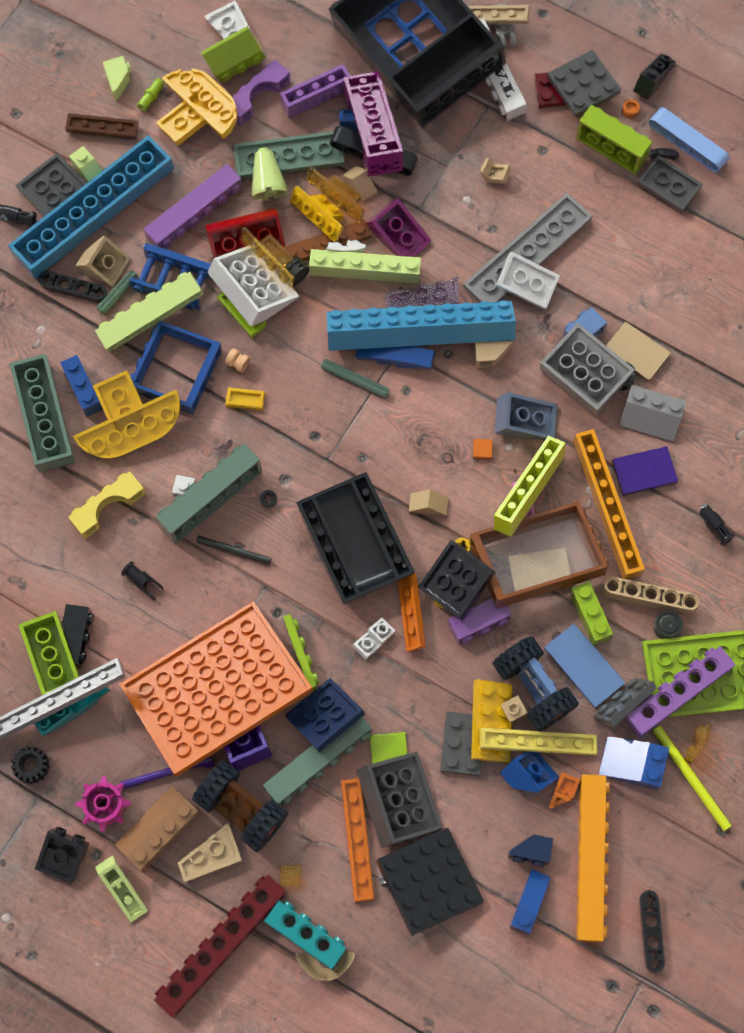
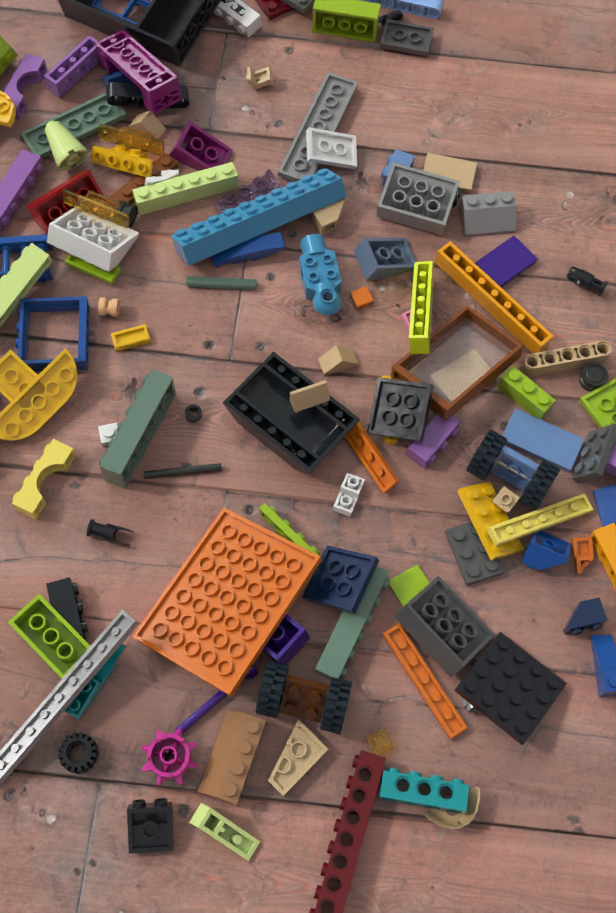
camera: 30 degrees left, 5 degrees down
(377, 531) = (309, 396): none -> tan slope
(451, 410) = (320, 275): none -> dark azure brick

